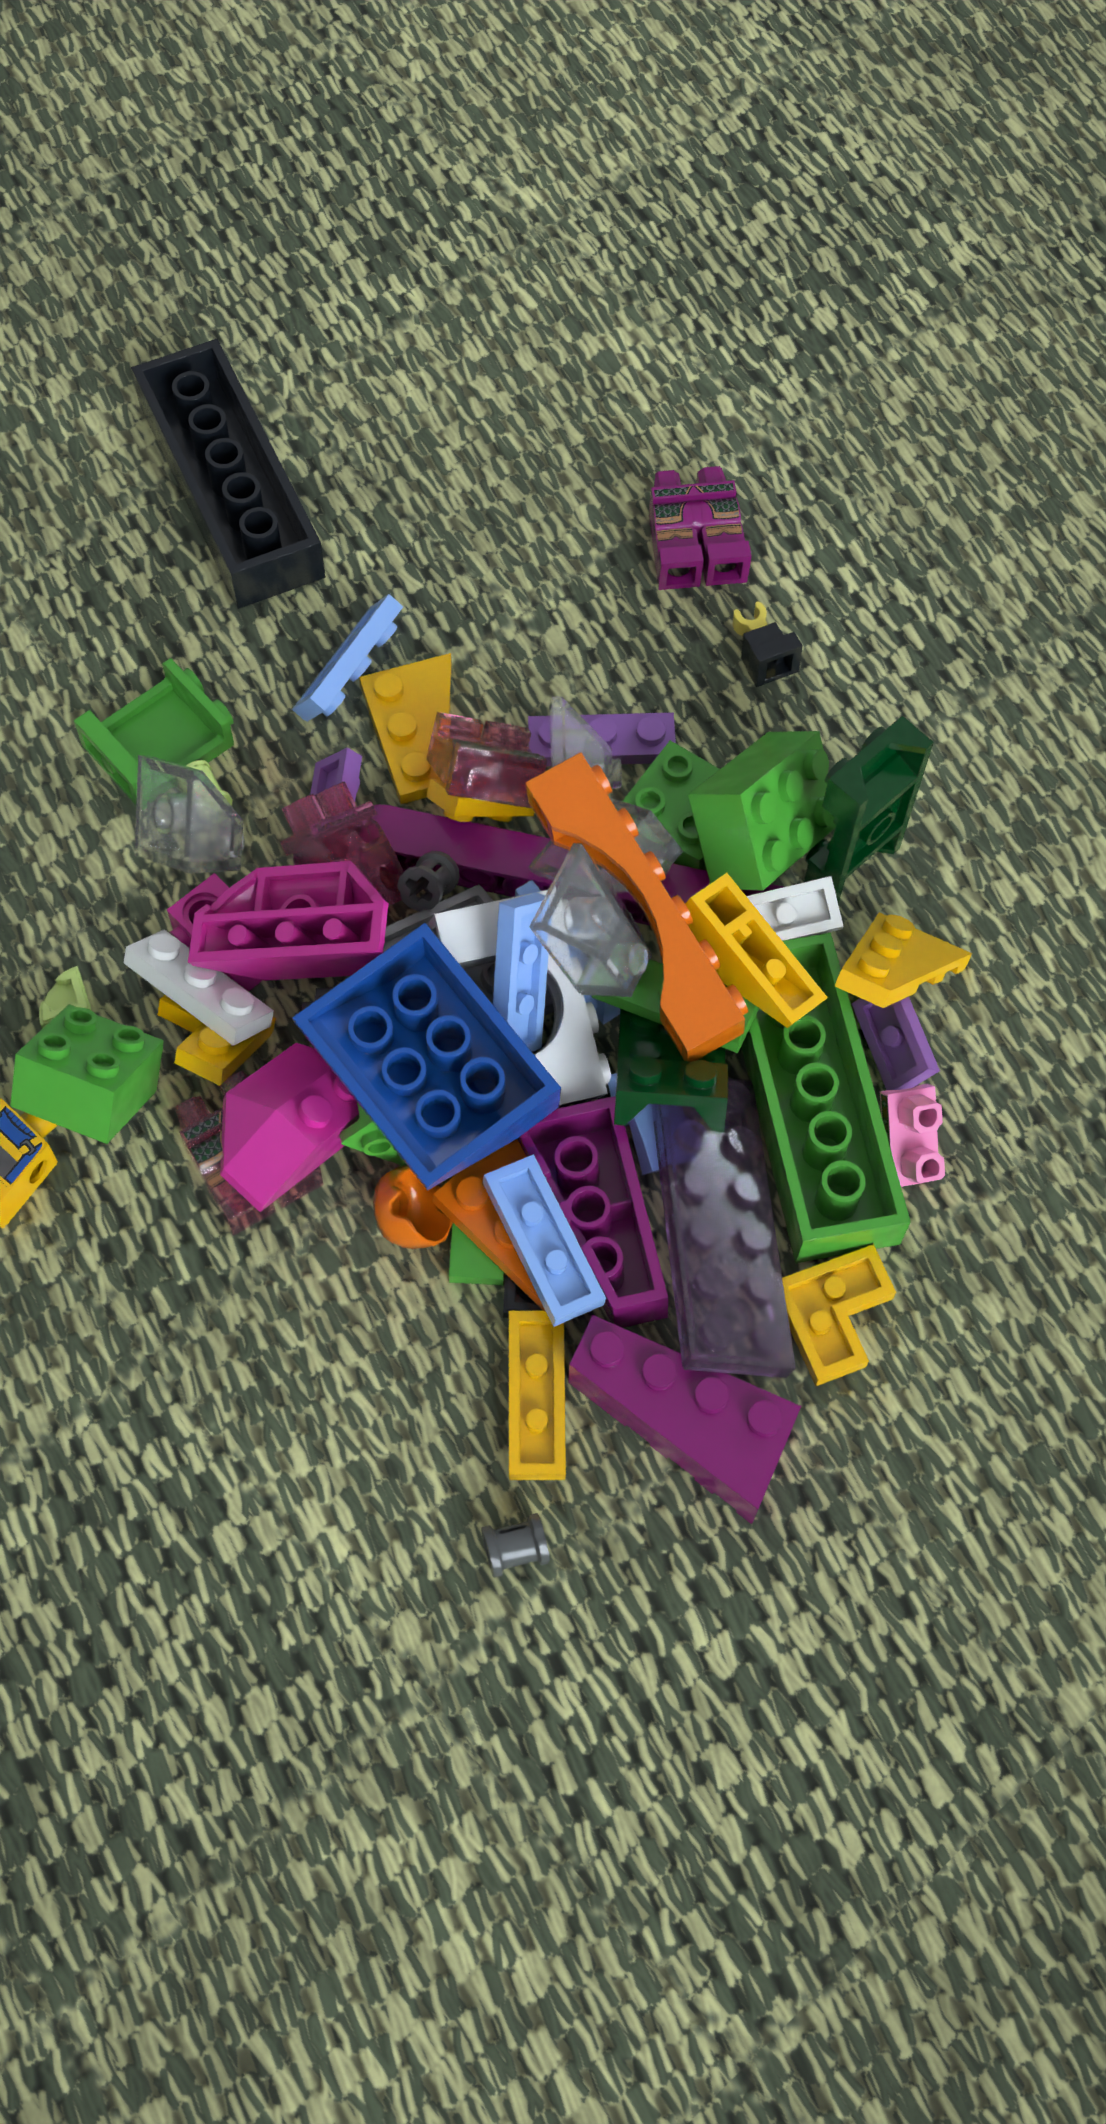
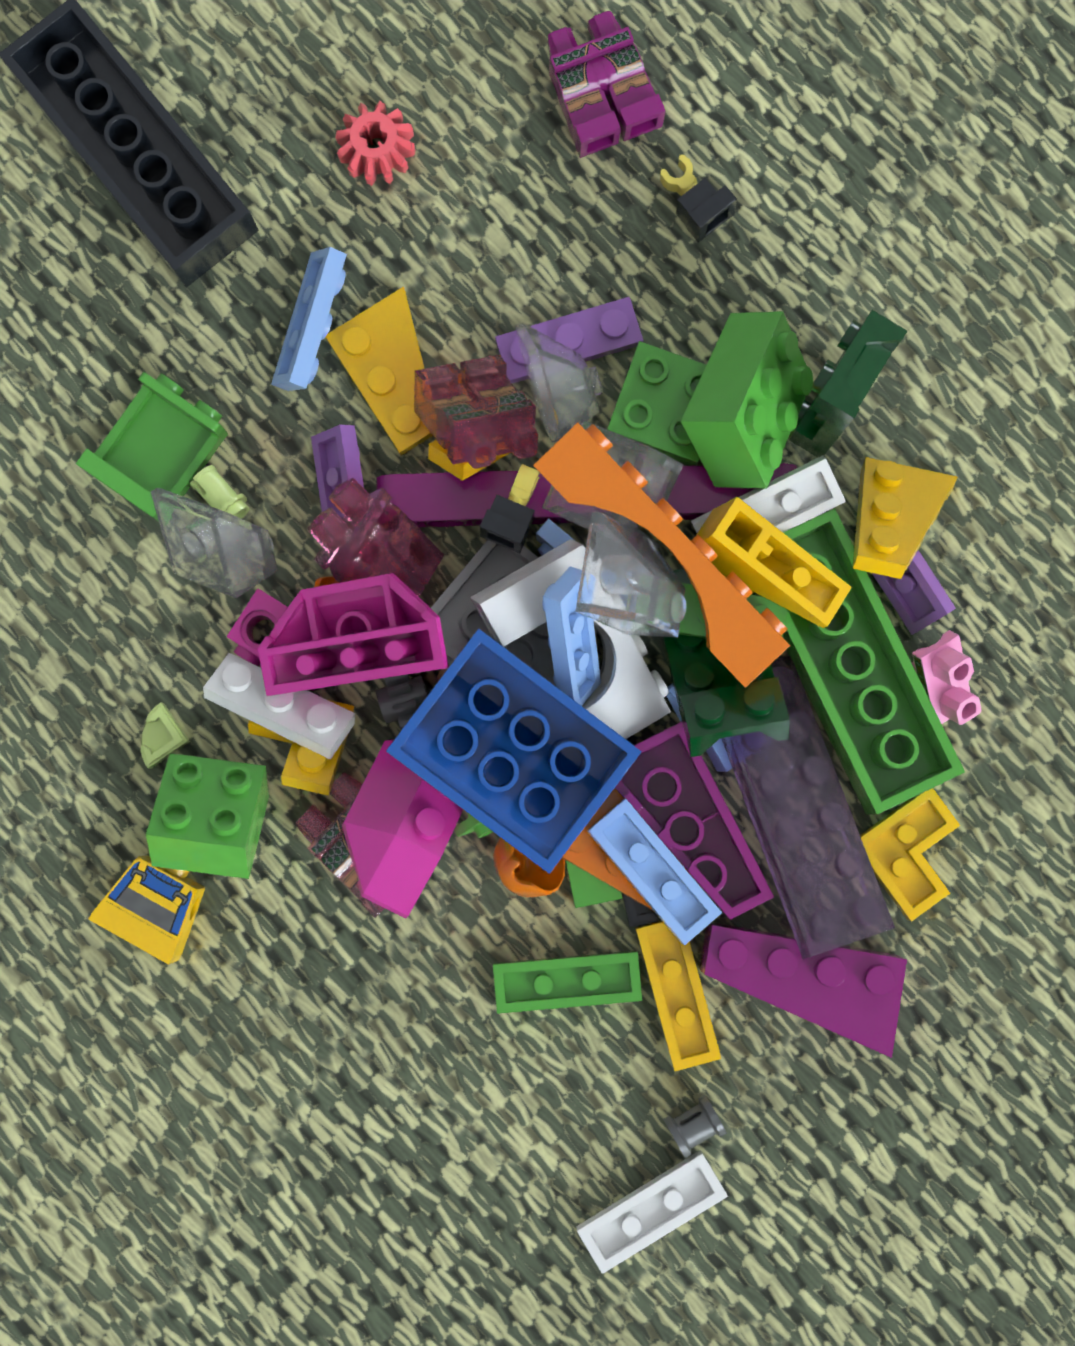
camera: 10 degrees left, 20 degrees up
(416, 1351) = (567, 982): none -> bright green plate
(424, 878) = (448, 533): dark grey bush -> none
(438, 1630) = (651, 1211): none -> white plate
(462, 527) = (375, 160): none -> coral gear
(493, 866) = (509, 518): none -> black piece

